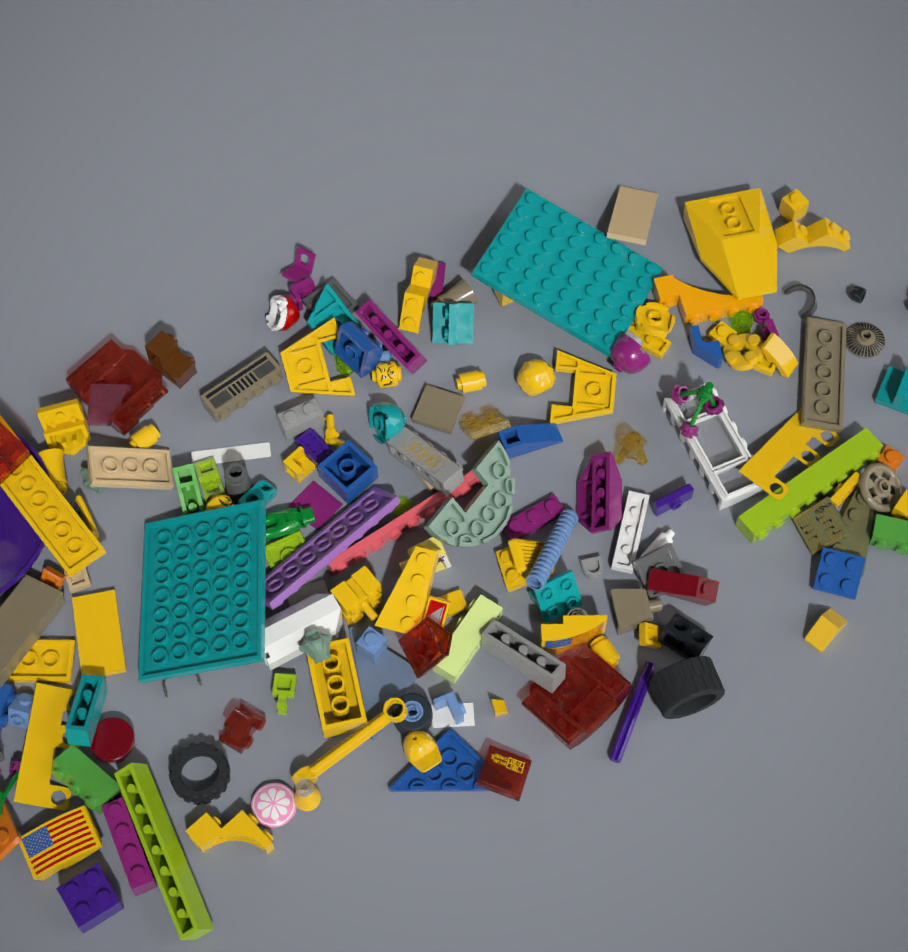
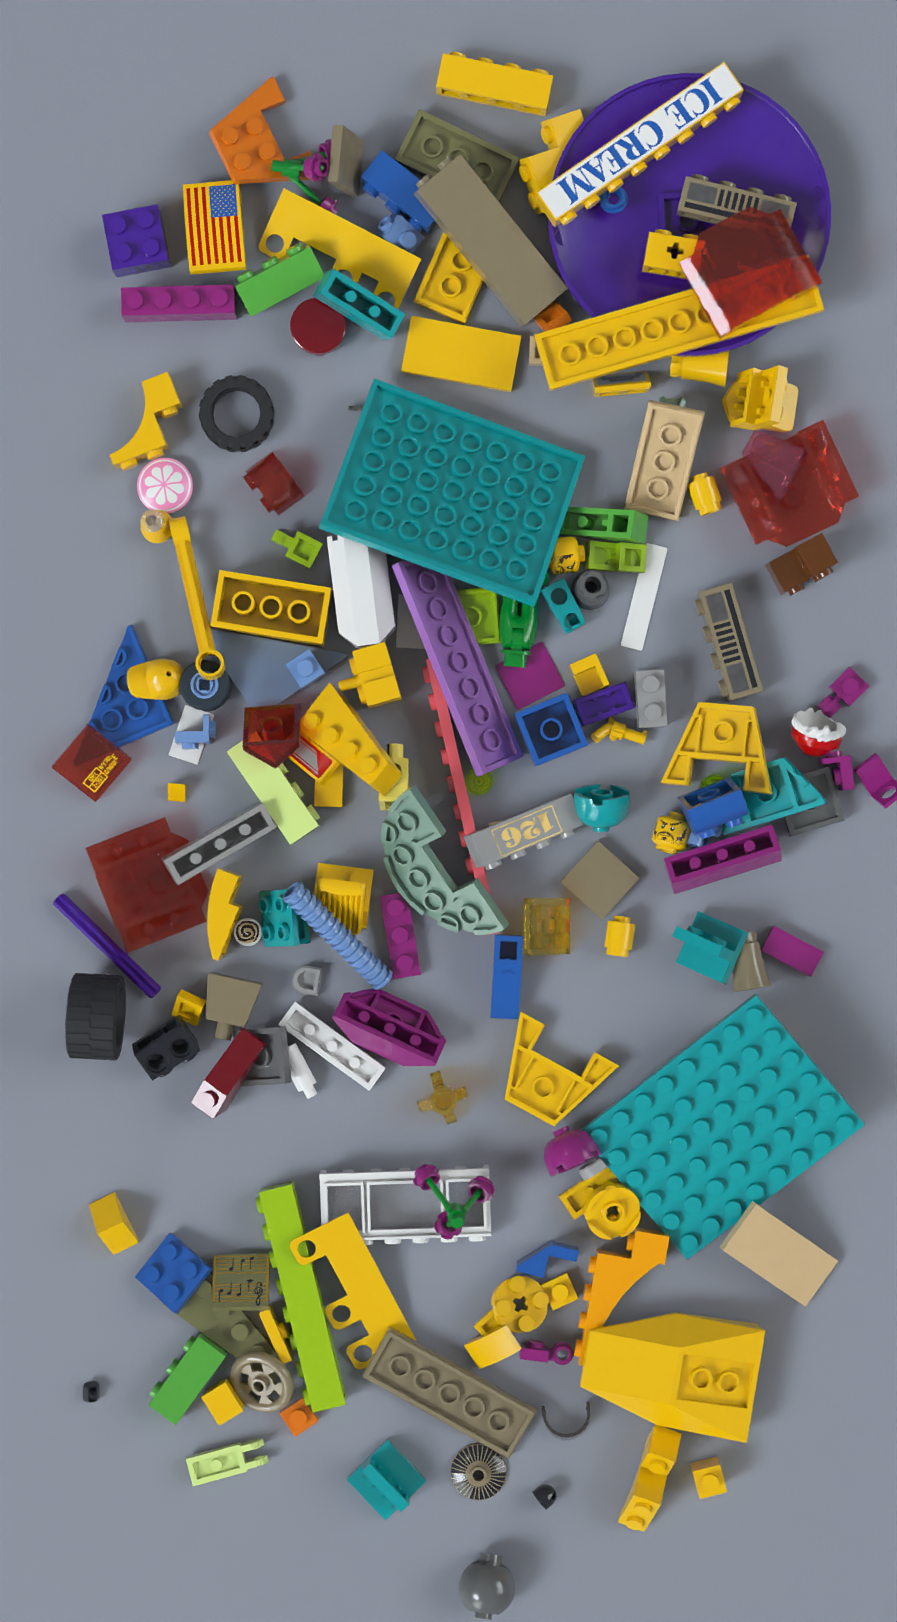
camera: 110 degrees right, 25 degrees up
(163, 851) = (156, 339): lime brick -> none
(245, 310) = (847, 687): none -> magenta plate
(317, 645) = (319, 599): sand green rock -> none
(417, 294) = (772, 920): yellow arch -> none
(535, 377) = (591, 1021): yellow hair -> none
(605, 650) = (189, 944): yellow brick -> none
(673, 500) = (350, 1117): dark purple plate -> none
(742, 317) = (564, 1328): clear neon green wheel -> none

